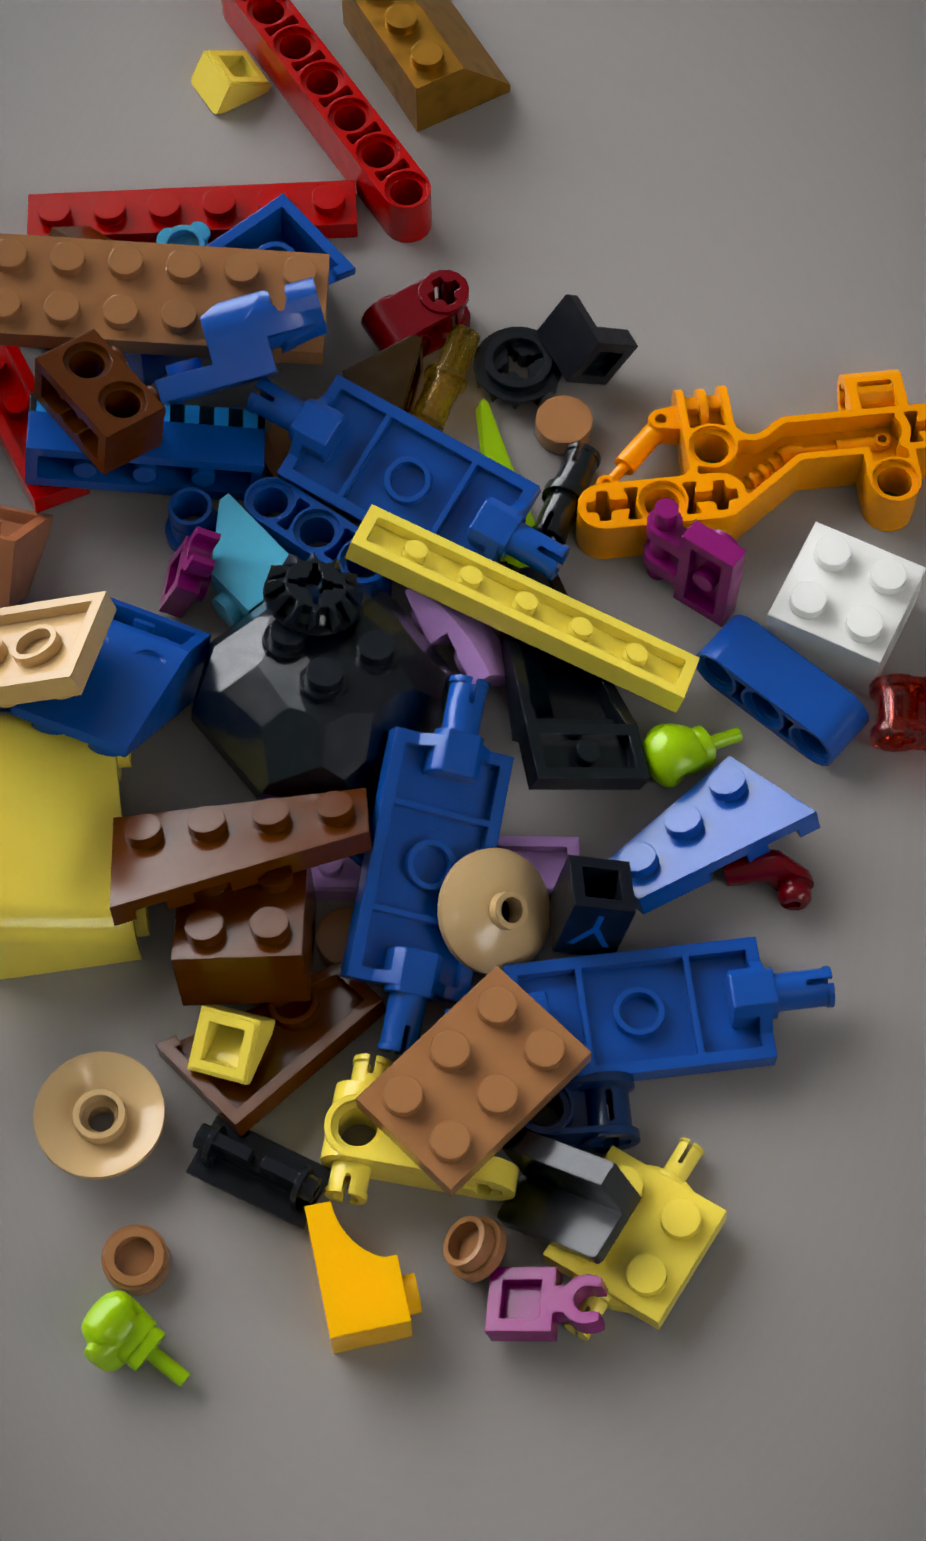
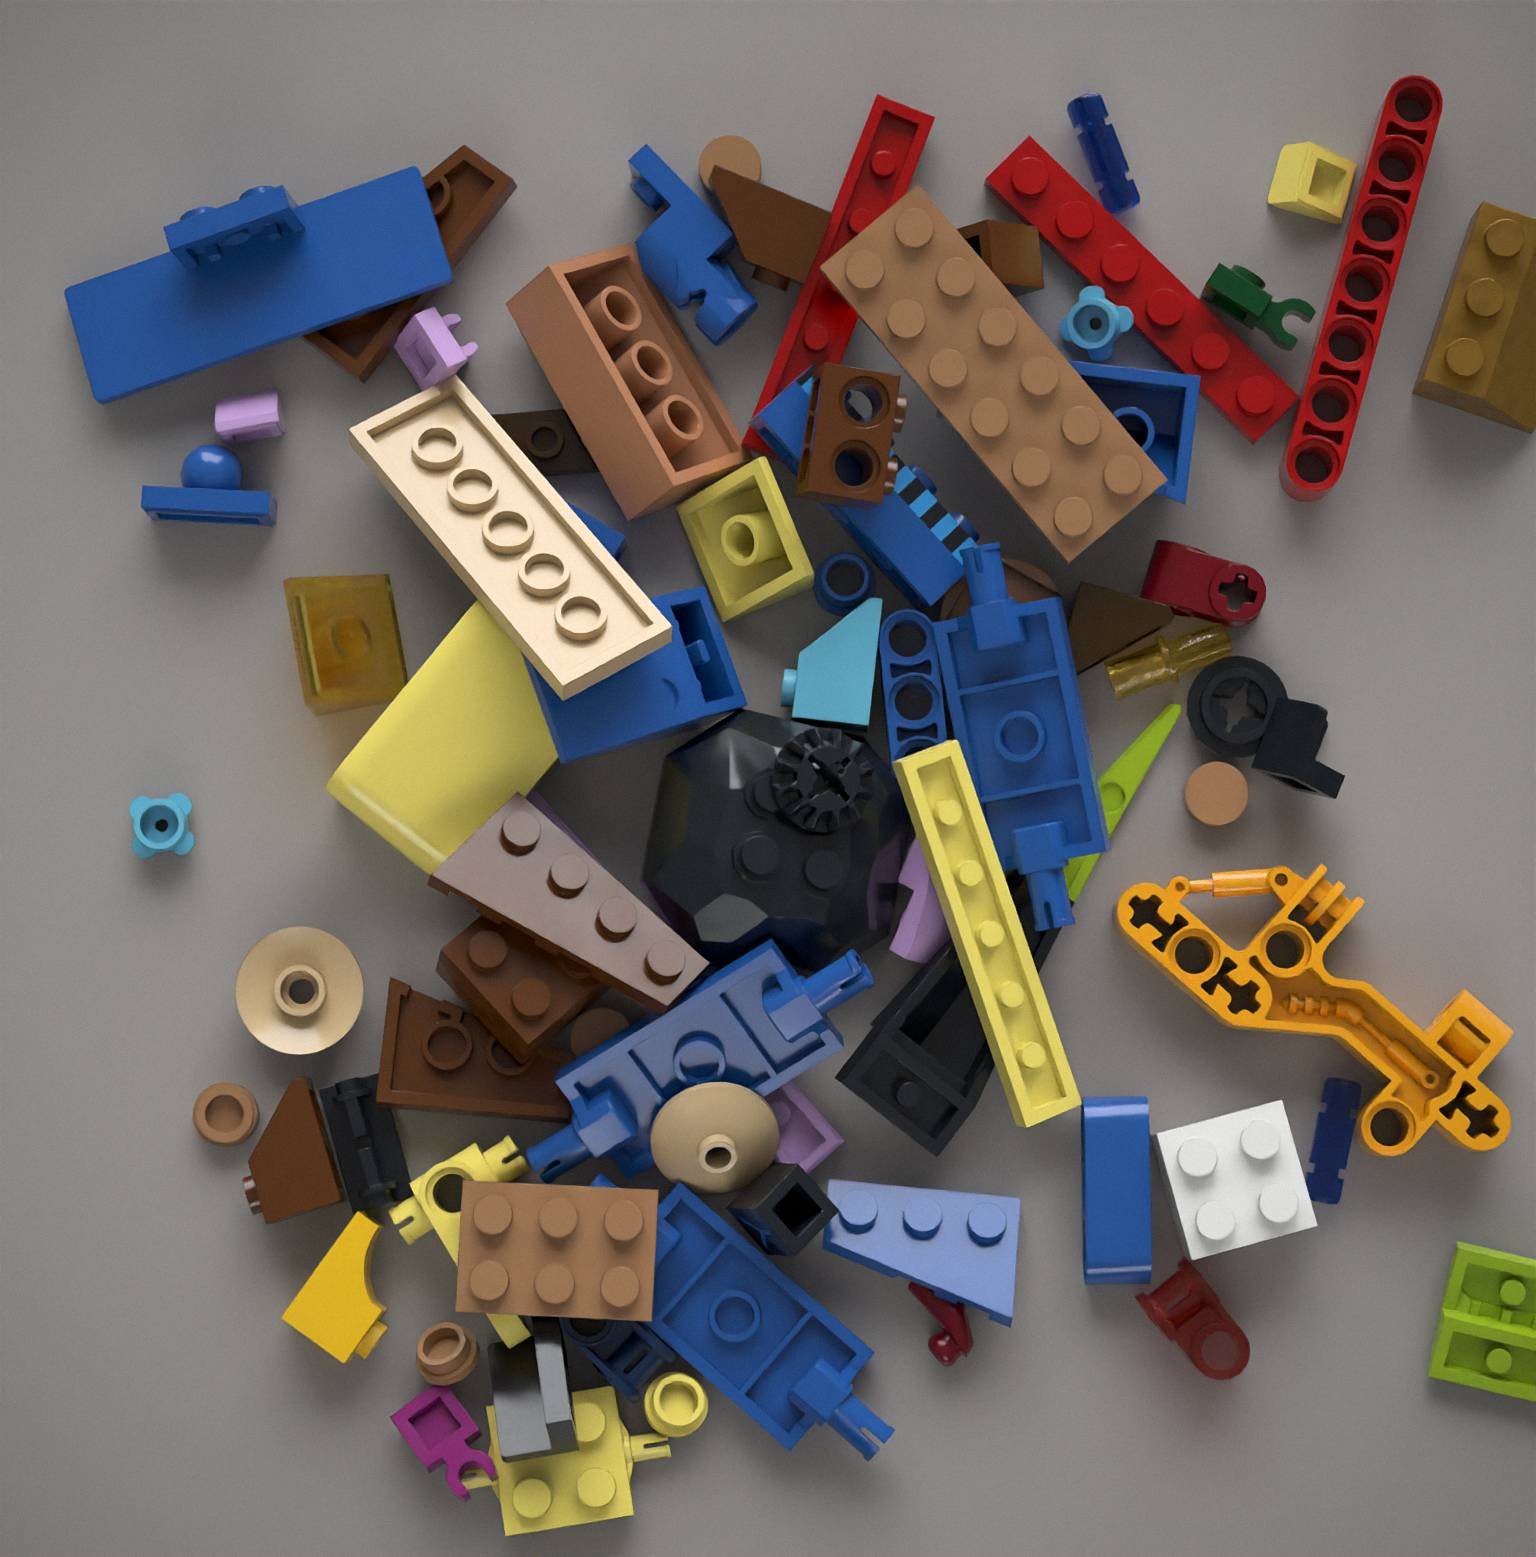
camera: 50 degrees right, 20 degrees up
(84, 166) = (1103, 153): none -> clear blue axle
(102, 543) = (746, 541): none -> light yellow slope
(125, 1333) = (166, 1160): lime piece -> none
(189, 572) = (788, 629): magenta plate -> none
(223, 1231) = (293, 1160): none -> reddish brown slope
(229, 1043) = (436, 1036): light yellow slope -> none
(242, 339) = (1001, 505): blue plate -> none
(266, 158) = (1242, 297): none -> dark green plate
(564, 490) = (1140, 861): black pin -> none
(667, 1112) = (675, 1404): none -> light yellow plate
(679, 751) = (988, 1154): lime piece -> none
(697, 560) = (1159, 1045): magenta plate -> none
(846, 510) = (1332, 1140): none -> clear blue axle

